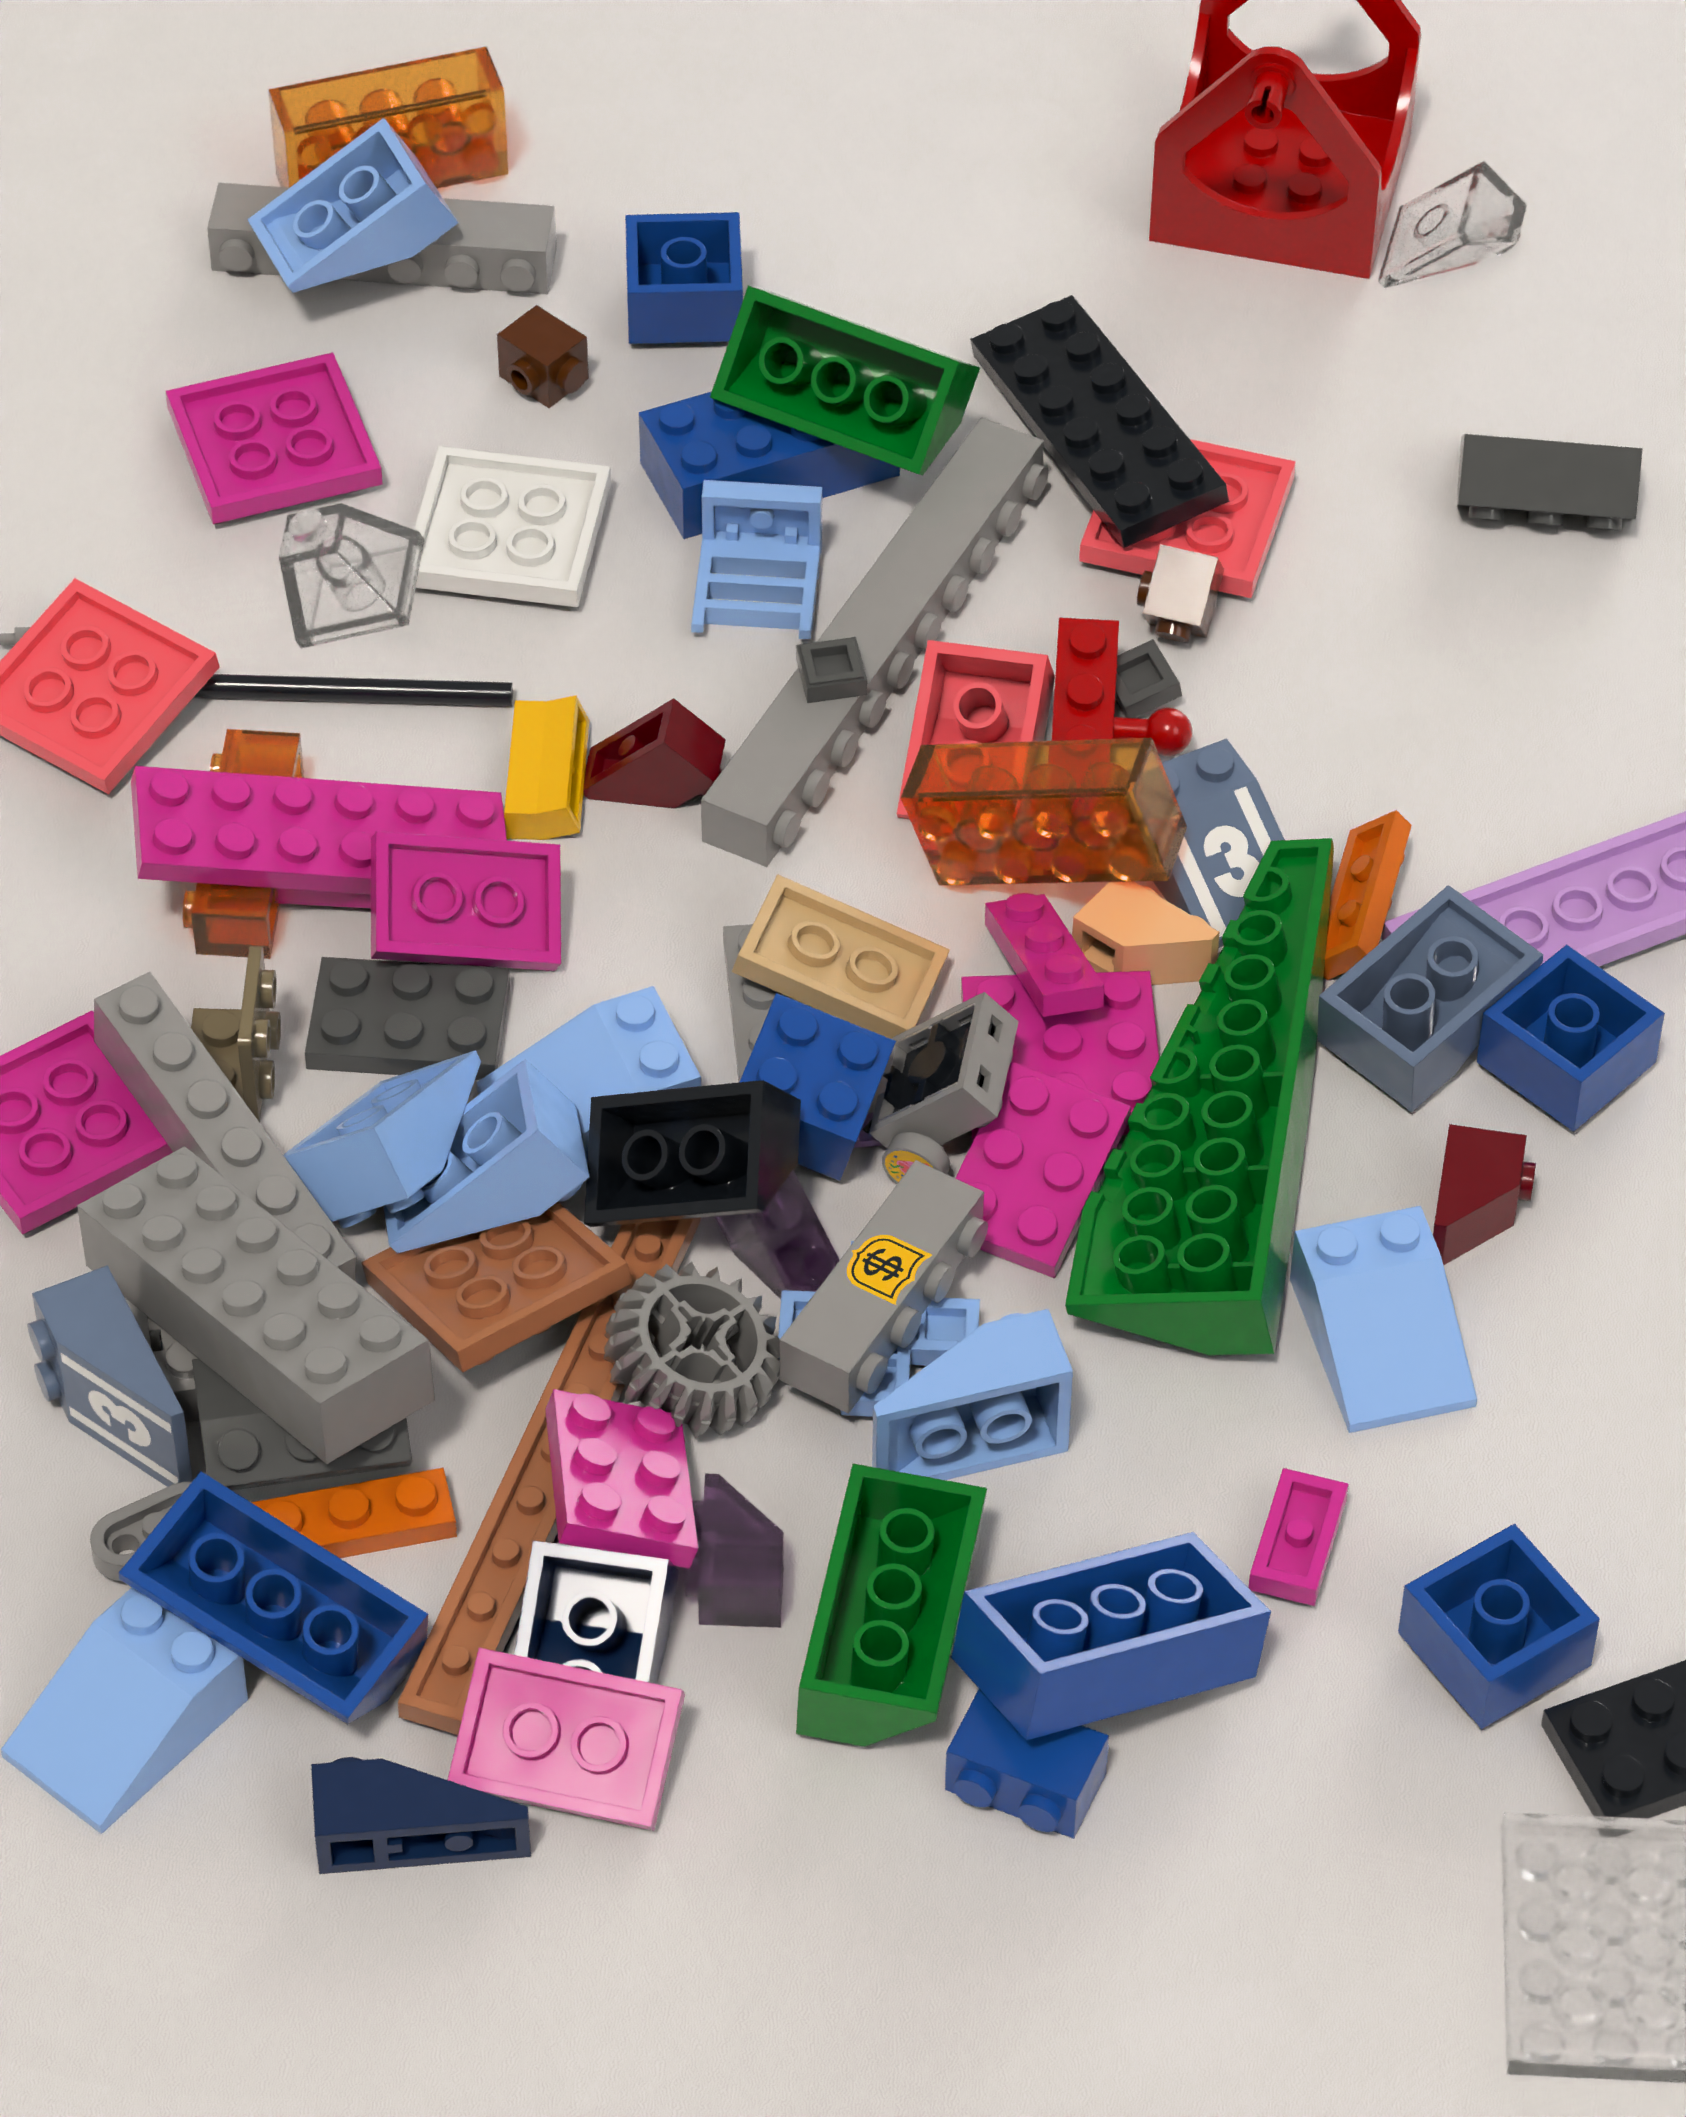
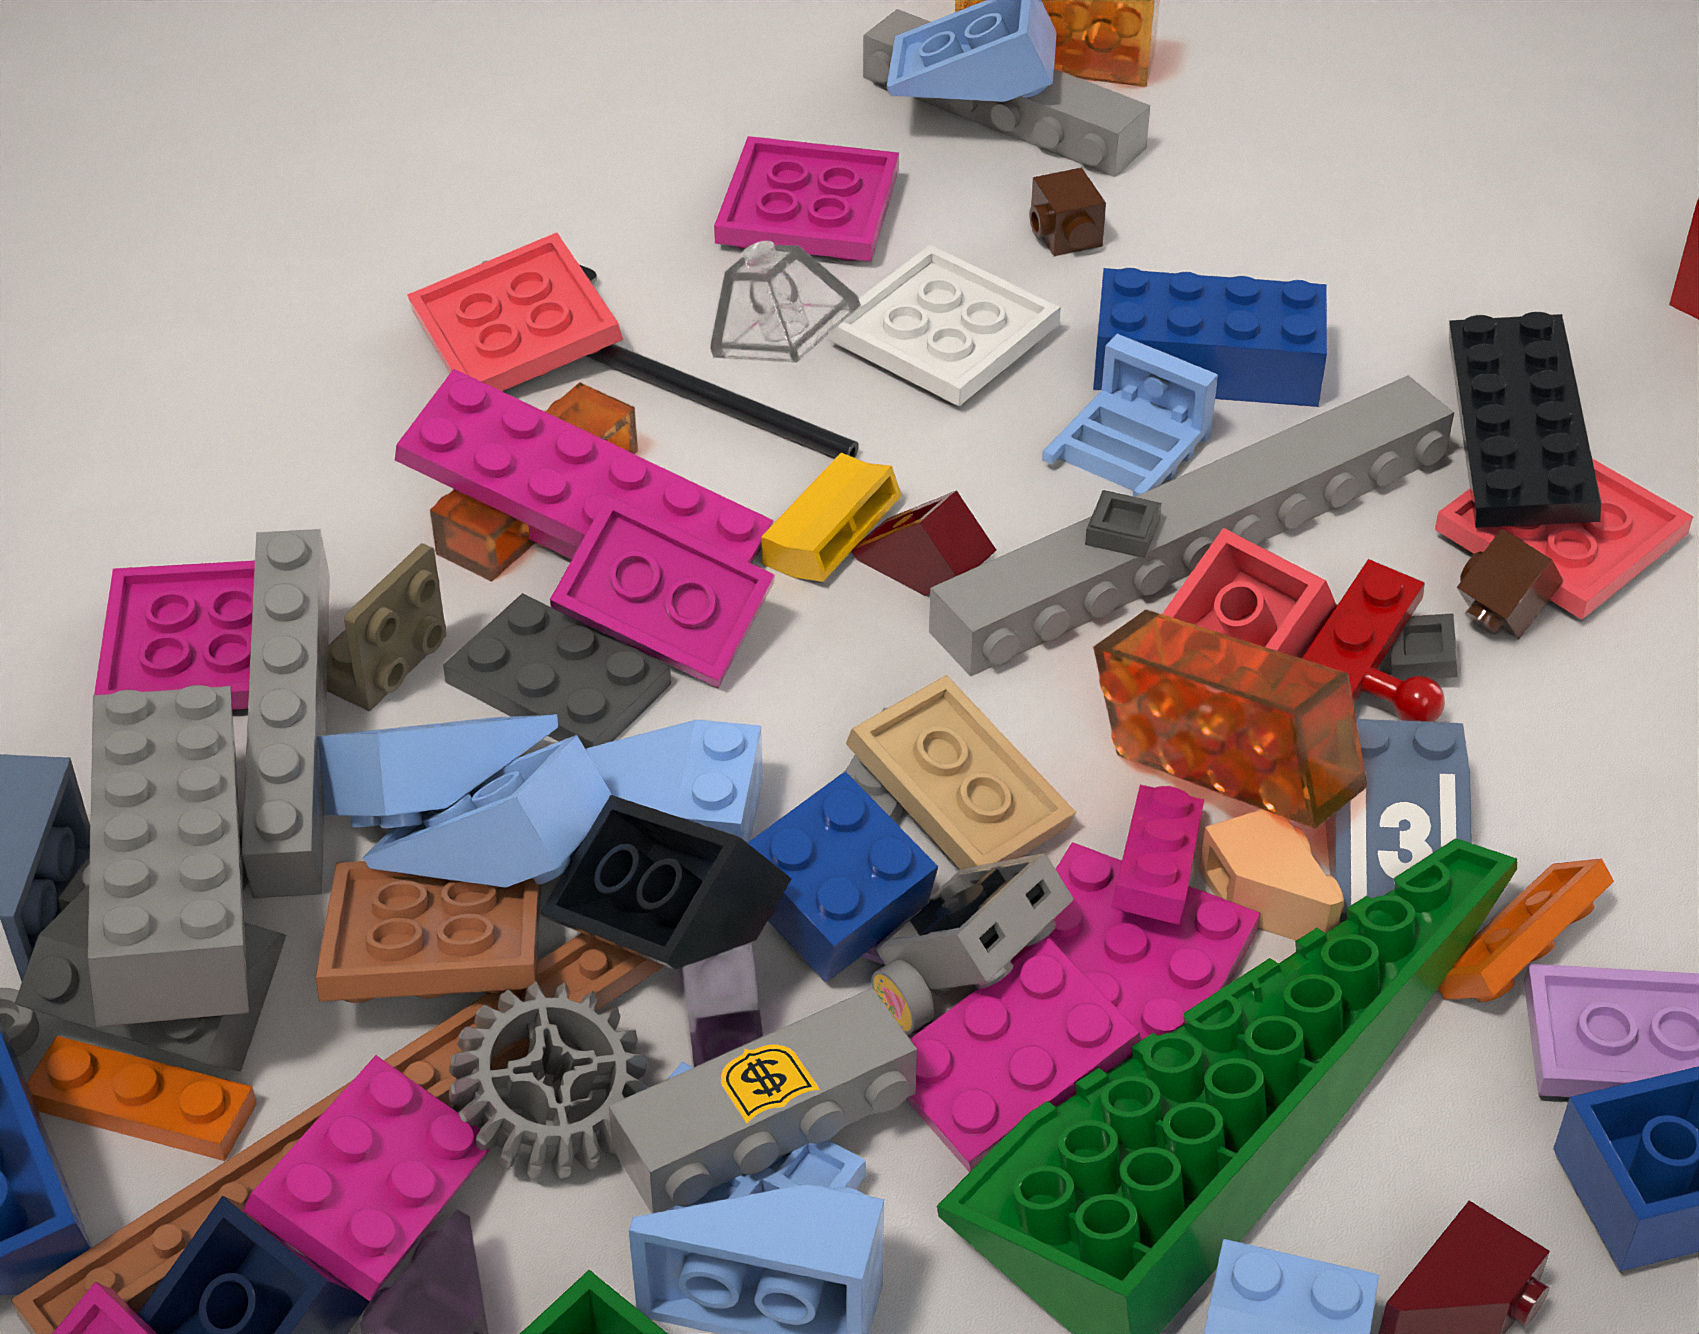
camera: 30 degrees right, 5 degrees down
(683, 277) = (1223, 191): blue brick -> none
(843, 381) = (1288, 295): green slope -> none
(1420, 996) = (1511, 1050): sand blue slope -> none

